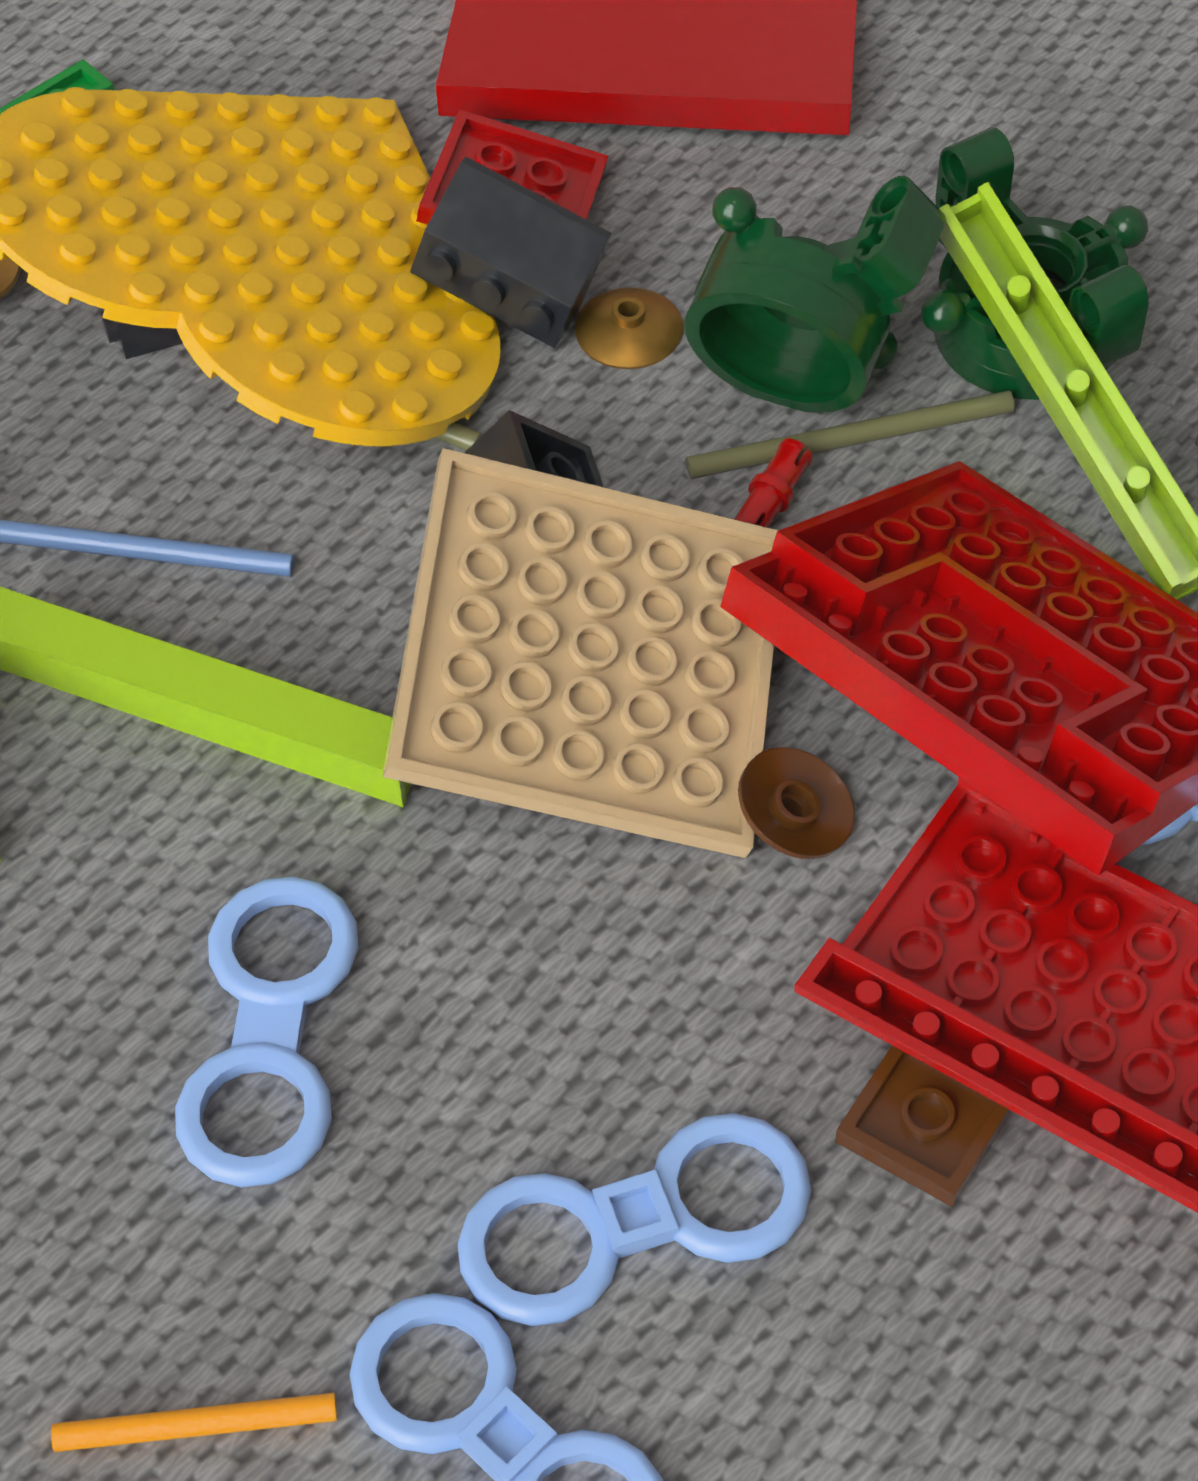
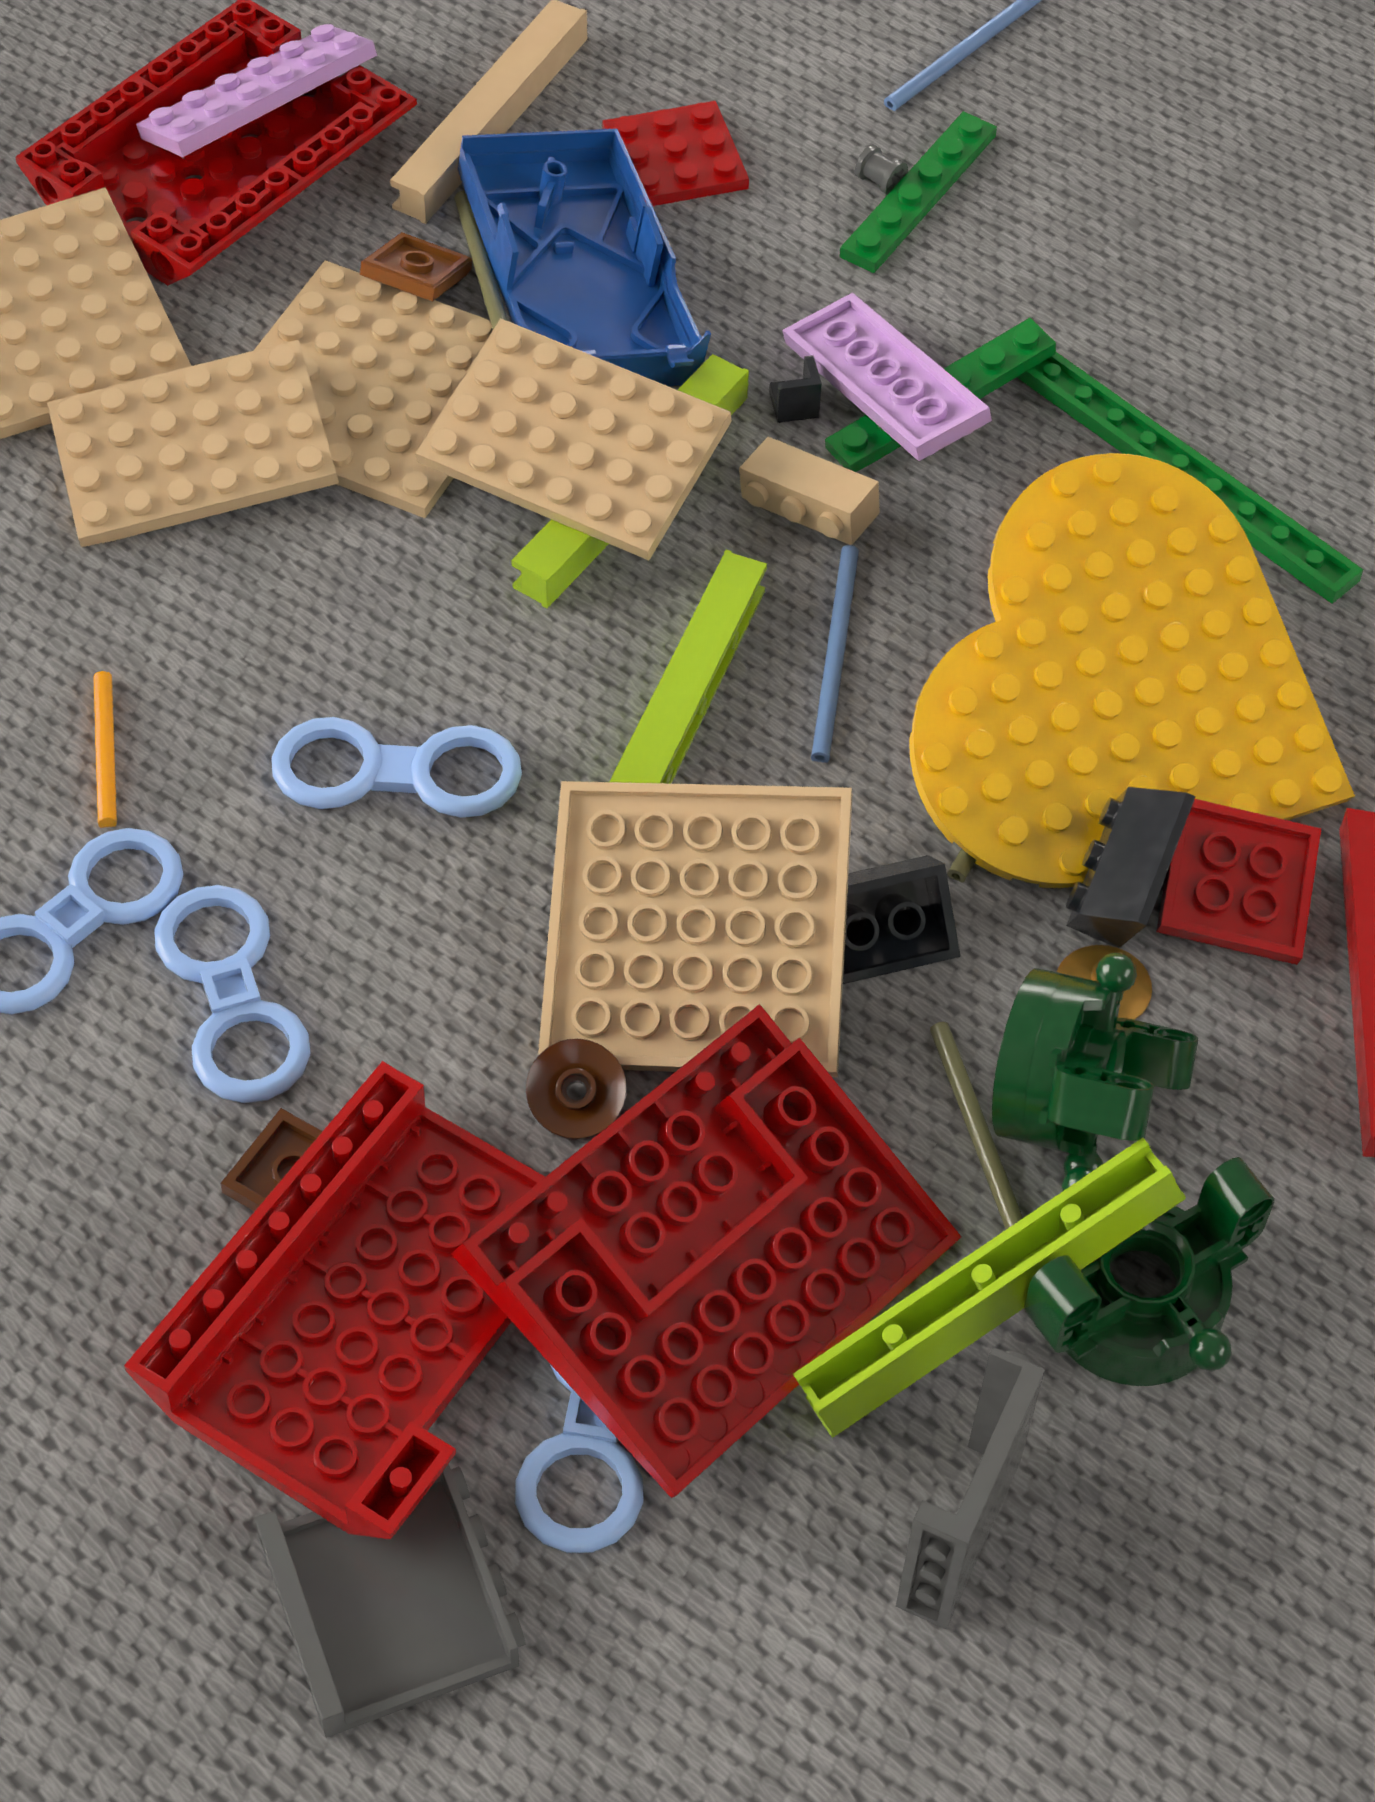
camera: 85 degrees right, 0 degrees up
(773, 488) = (907, 1082): red pin -> none

